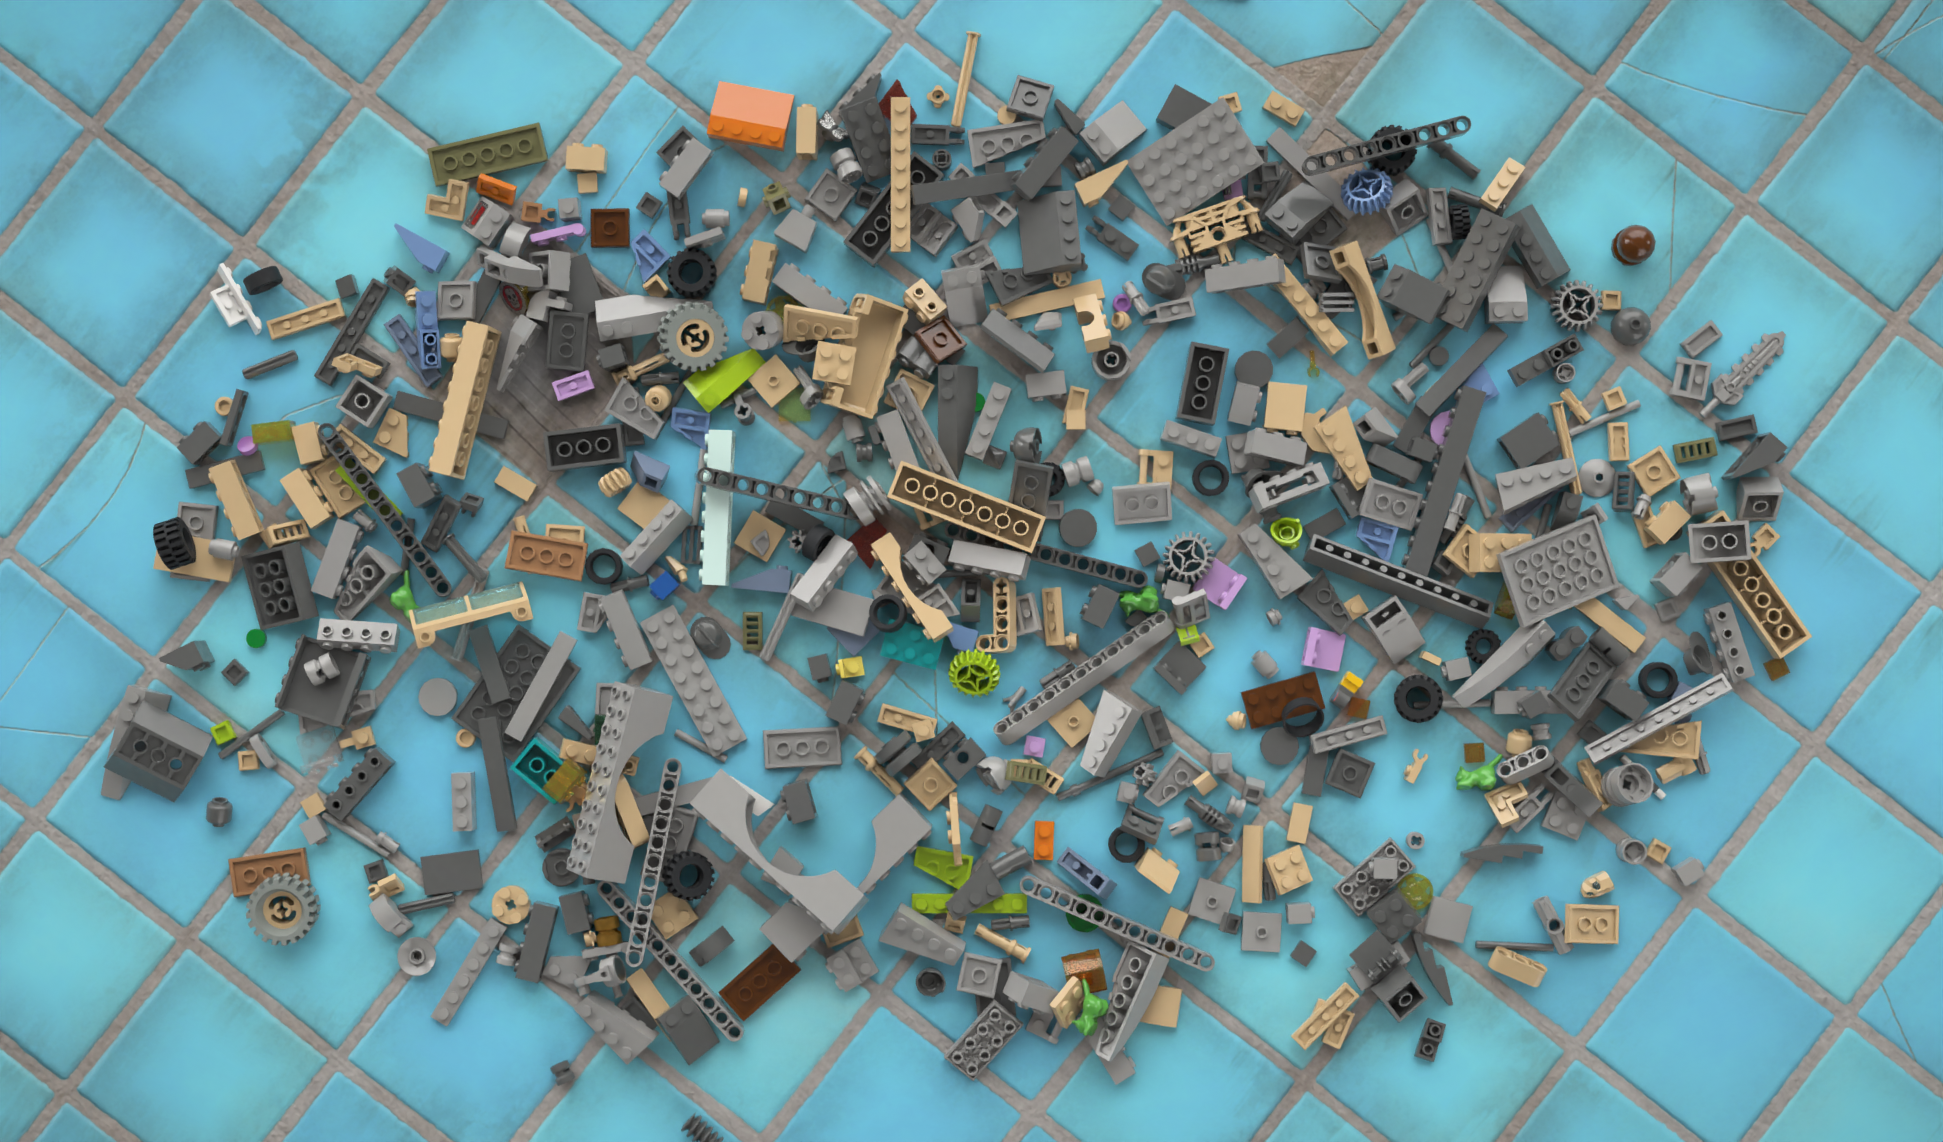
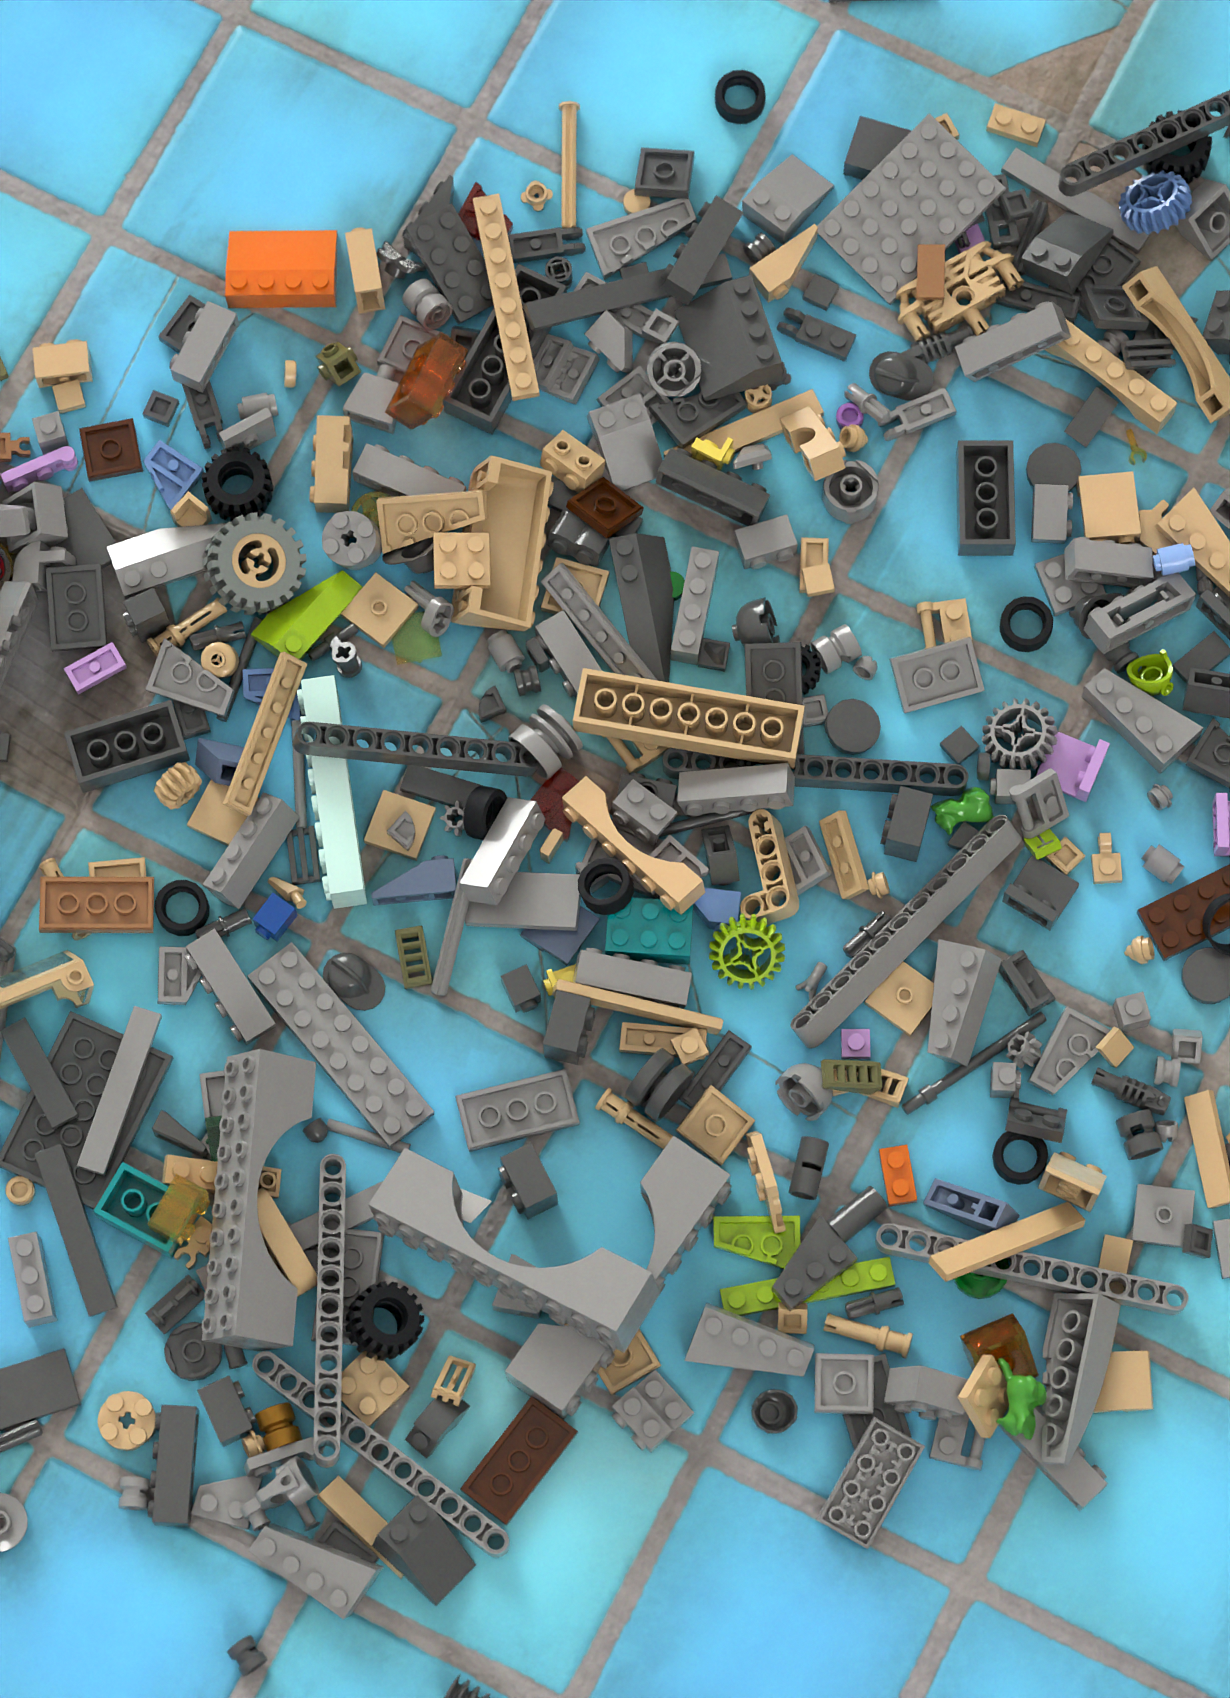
camera: 10 degrees left, 15 degrees down
(469, 971) = (80, 1533): light grey plate -> none
(515, 483) = (34, 818): tan tile -> none
(667, 737) = (316, 1130): none -> dark grey hinge
(679, 460) = (265, 734): none -> tan tile
(720, 934) = (449, 1393): none -> tan tile
(834, 227) = (427, 381): none -> clear orange brick
(858, 571) = (551, 845): none -> tan tile
(893, 676) = (633, 978): none -> light grey brick
(894, 697) = (642, 1007): none -> tan tile
(957, 768) = (751, 1094): dark grey brick -> none
(1007, 248) = (673, 369): none -> light grey cylinder
(1018, 313) = (709, 451): none -> light yellow bracket
(1071, 120) = (723, 186): dark grey slope -> none
(1090, 36) = (745, 78): none -> black tyre
(1104, 905) = (1006, 1241): none -> tan tile
(1181, 826) = (1093, 1116): light grey pin -> none
(1190, 439) = (986, 575): light grey brick -> none
(1199, 213) = (930, 272): none -> medium nougat tile
(1227, 657) = (1106, 865): none -> tan plate
(1320, 456) = (1174, 559): none -> light blue brick
(1376, 263) = (1193, 297): dark grey bush -> none

